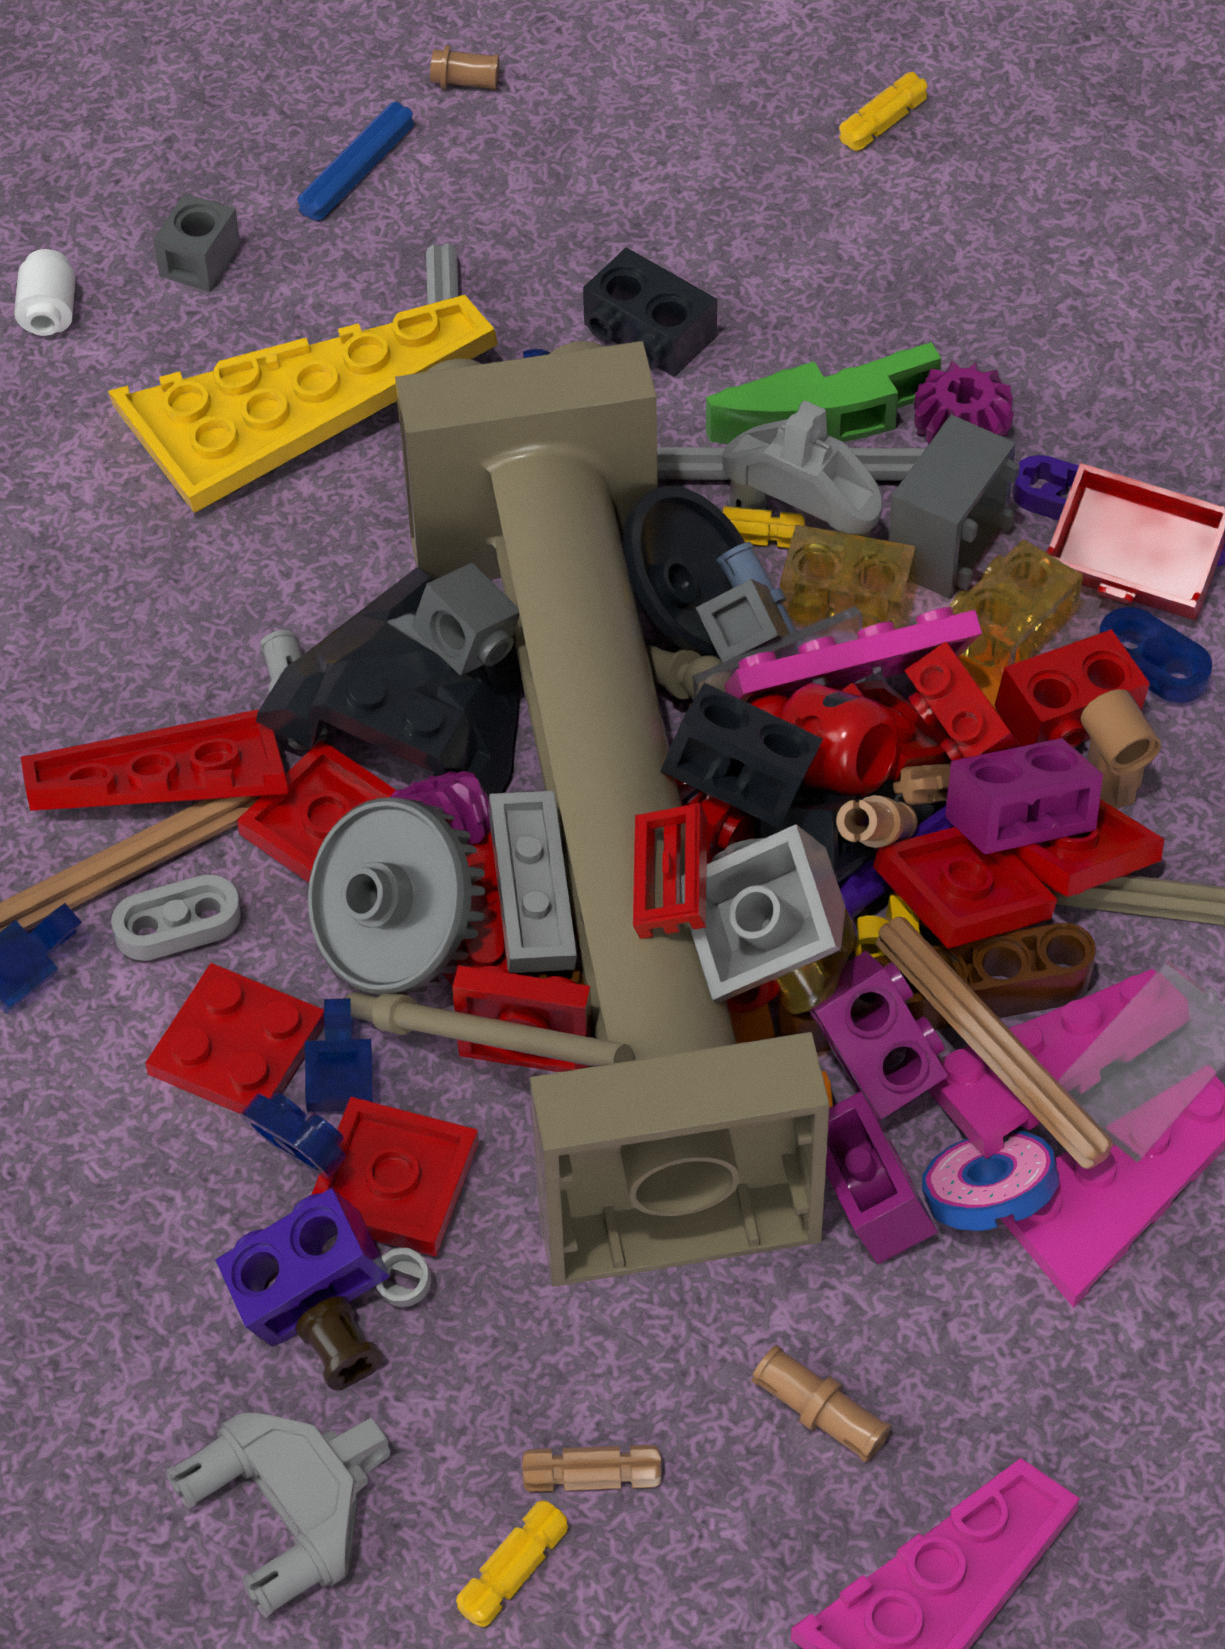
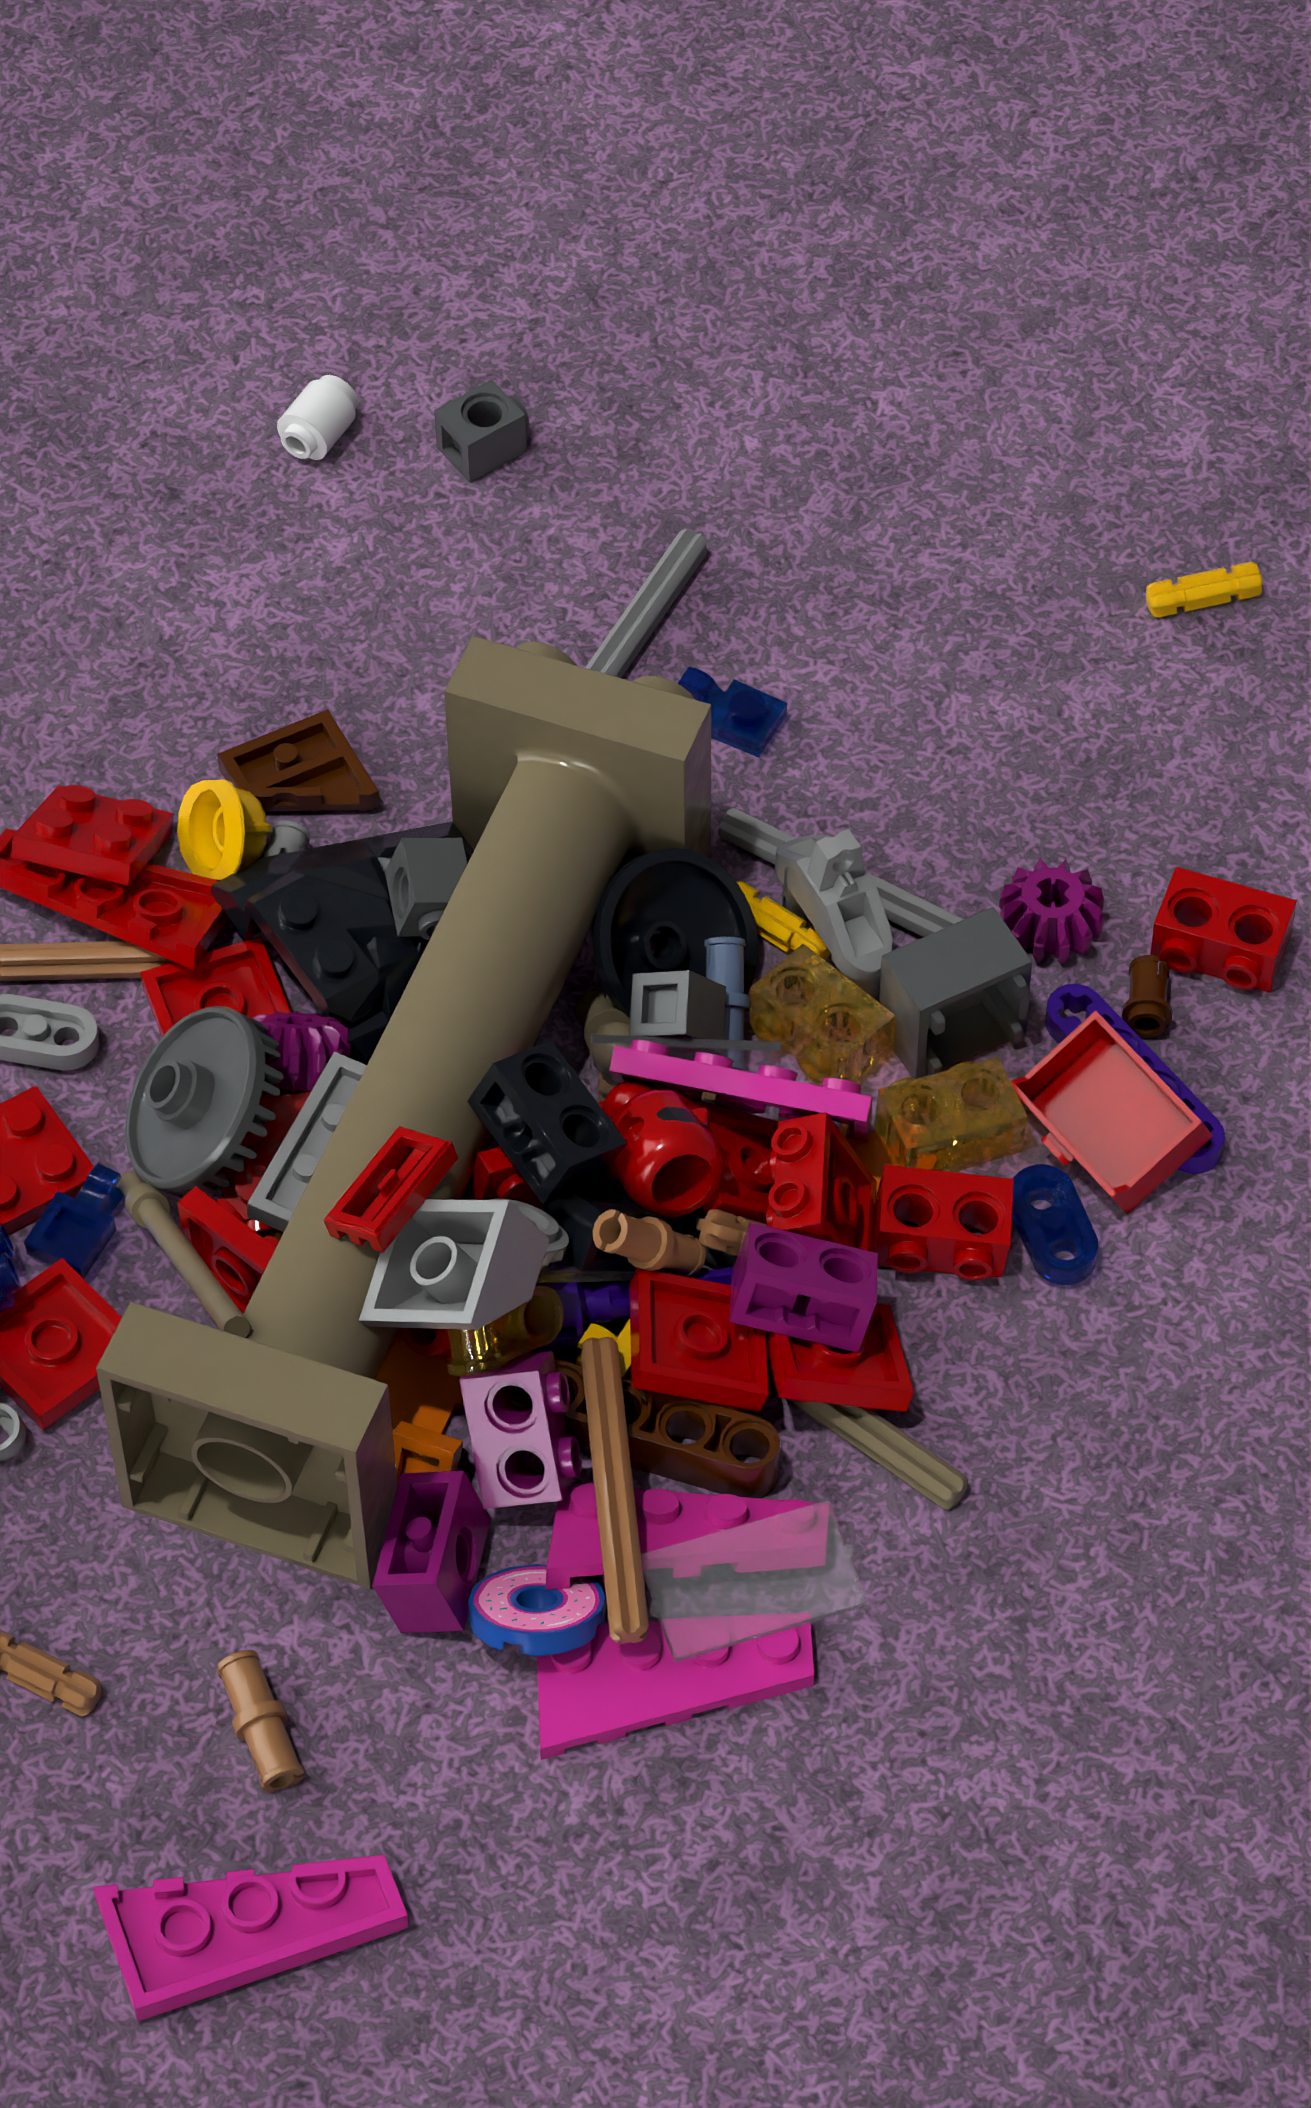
camera: 30 degrees right, 0 degrees up
(106, 724) = (92, 834): none -> red plate
(220, 666) = (220, 828): none -> yellow piece
(246, 587) = (301, 768): none -> reddish brown wing
(287, 398) = (420, 611): yellow wing -> none
(355, 161) = (681, 417): blue axle -> none
(464, 69) = (842, 372): medium nougat pin -> none
(649, 304) = (832, 684): black brick -> none
(856, 399) = (935, 854): bright green slope -> none
(1087, 439) = (1147, 1006): none -> reddish brown pin
(1109, 361) = (1223, 930): none -> red brick
(1119, 744) = (933, 1288): medium nougat piece -> none

